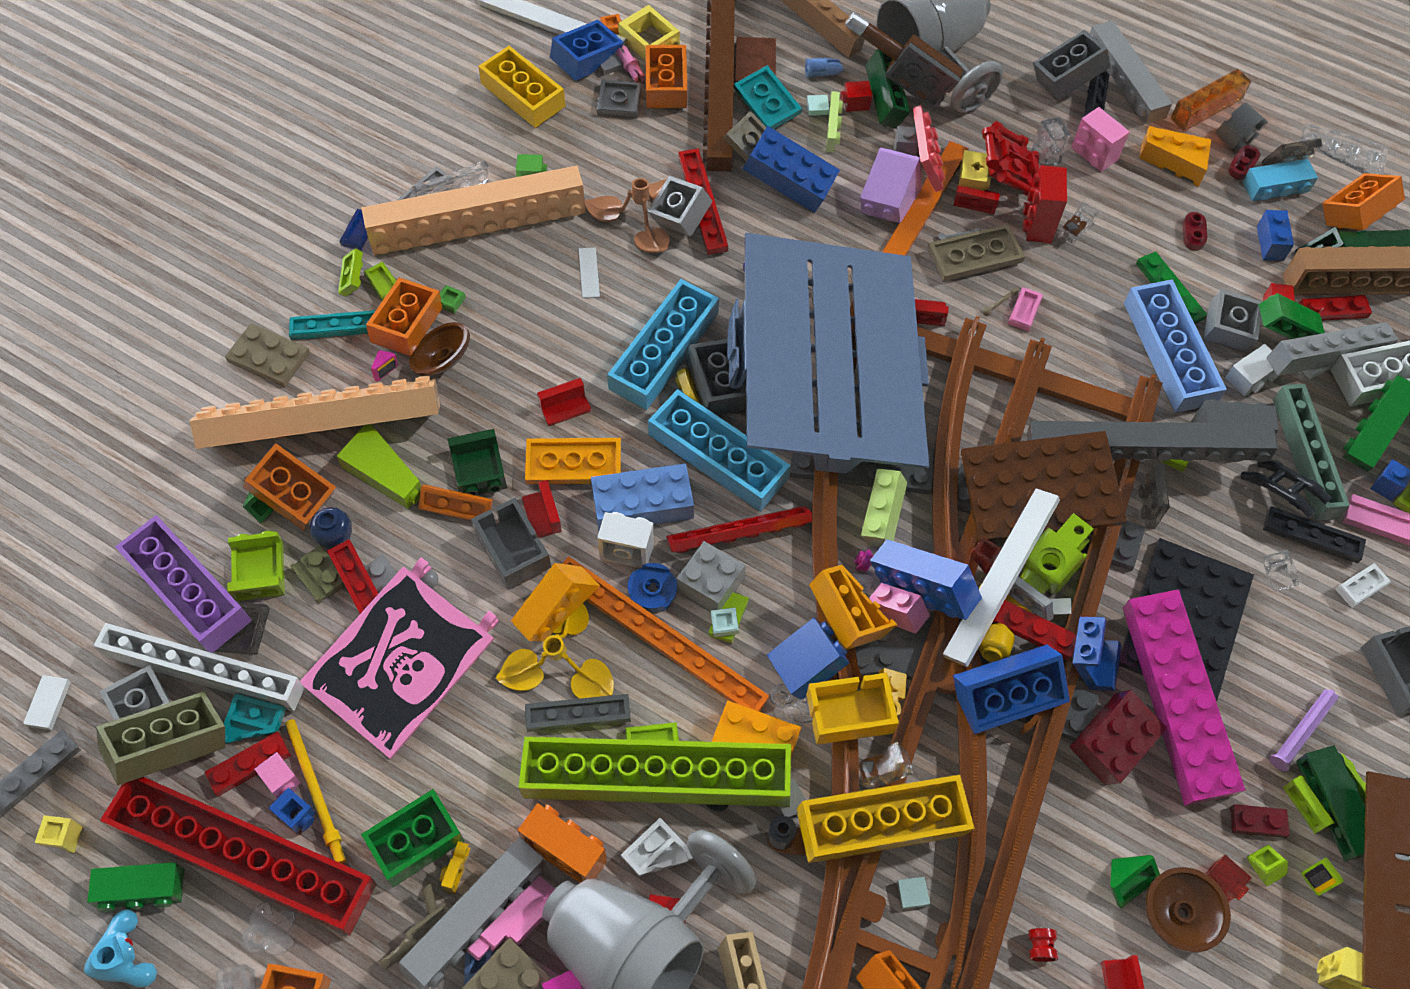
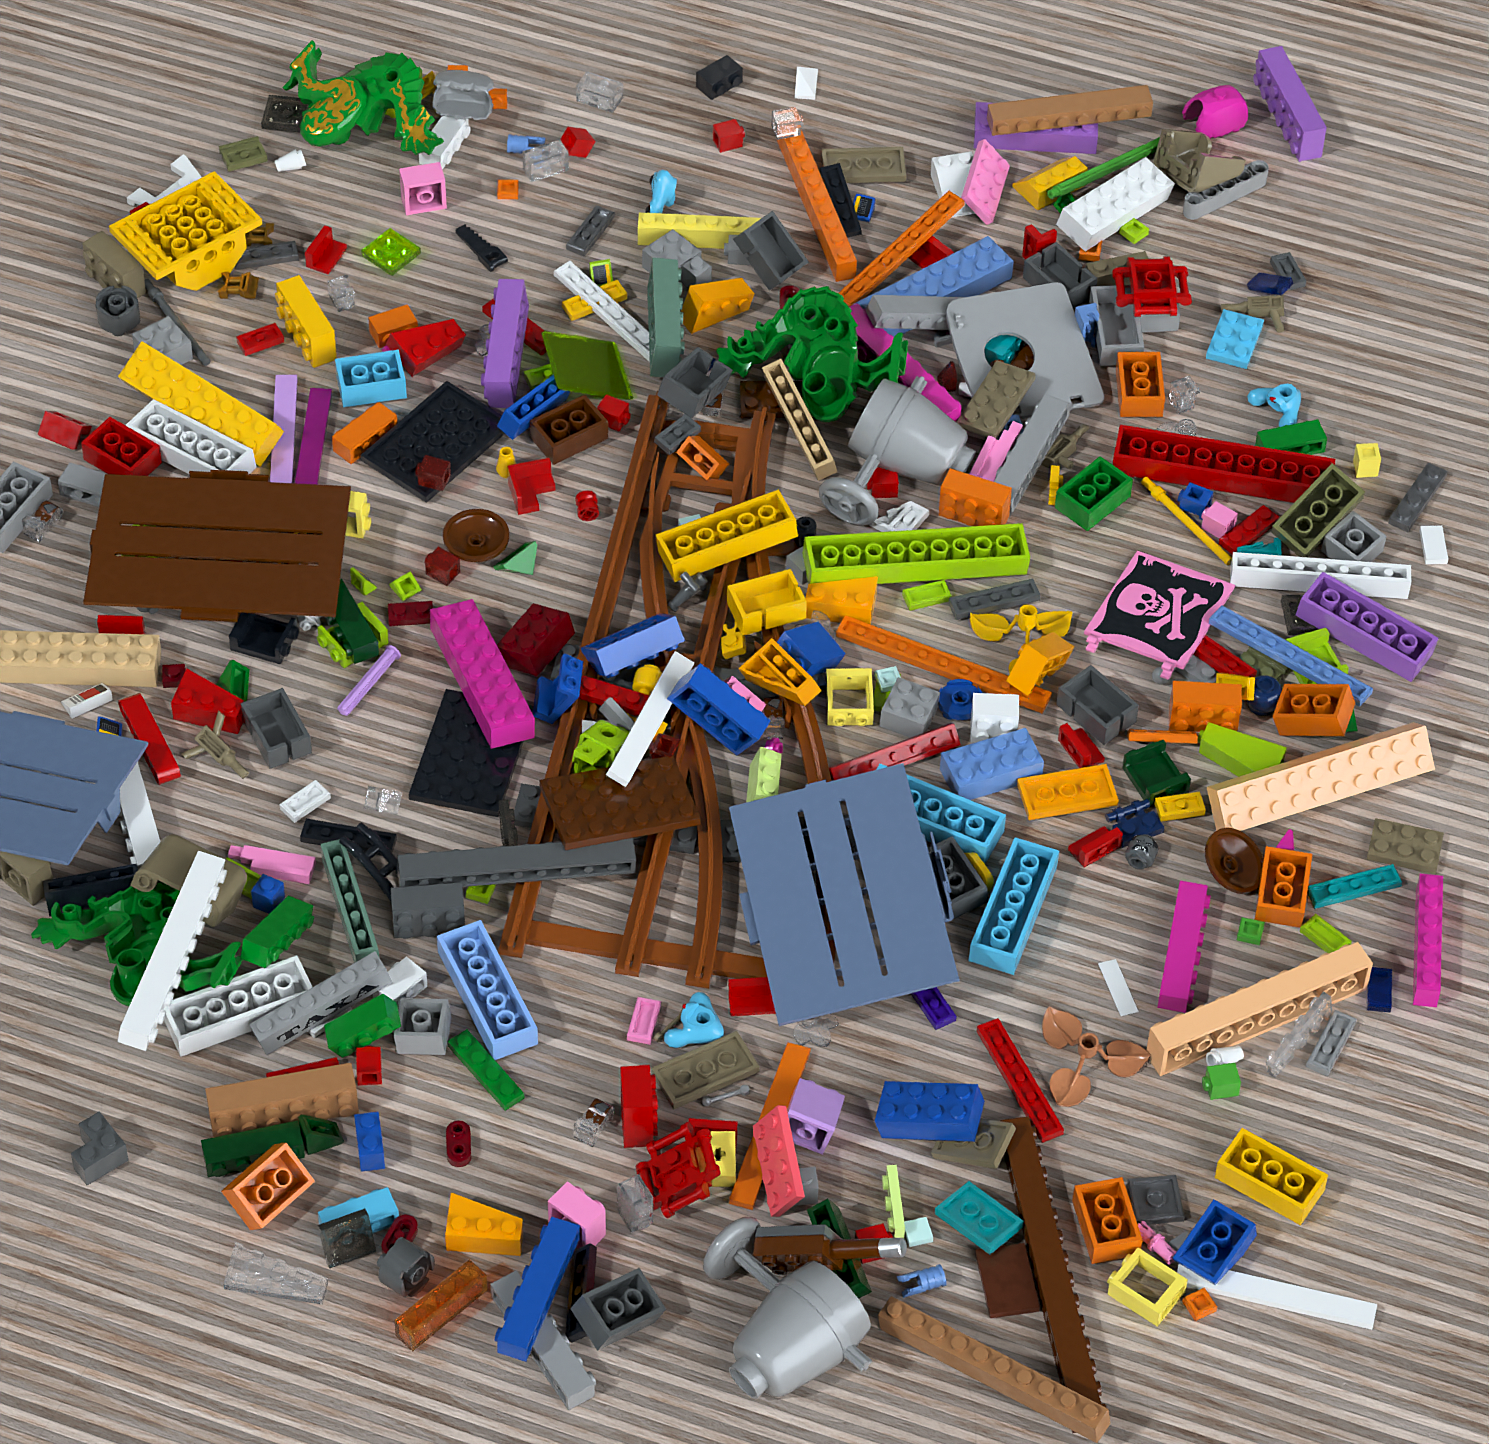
camera: 170 degrees right, 10 degrees down
(285, 561) = (1286, 653): none -> medium blue tile
(294, 255) = (1428, 940): none -> dark pink brick
(350, 272) = (1362, 932): lime plate -> none
(358, 536) = (1247, 682): none -> yellow tile
(400, 515) = (1202, 702): none -> orange brick
(464, 424) = (1180, 806): none -> yellow plate
(517, 415) = (1142, 824): none -> dark blue plate
(518, 288) = (1182, 947): none -> dark pink brick
(522, 385) = (1141, 851): none -> dark grey head
(680, 206) = (1040, 1047): light grey brick -> none
(766, 629) = (859, 680): none -> light yellow window
(885, 767) = (729, 575): clear leg -> none
(934, 769) = (692, 586): none -> dark grey piece
(977, 287) = (699, 1023): none -> medium azure head
(1139, 78) = (537, 1289): none -> blue brick

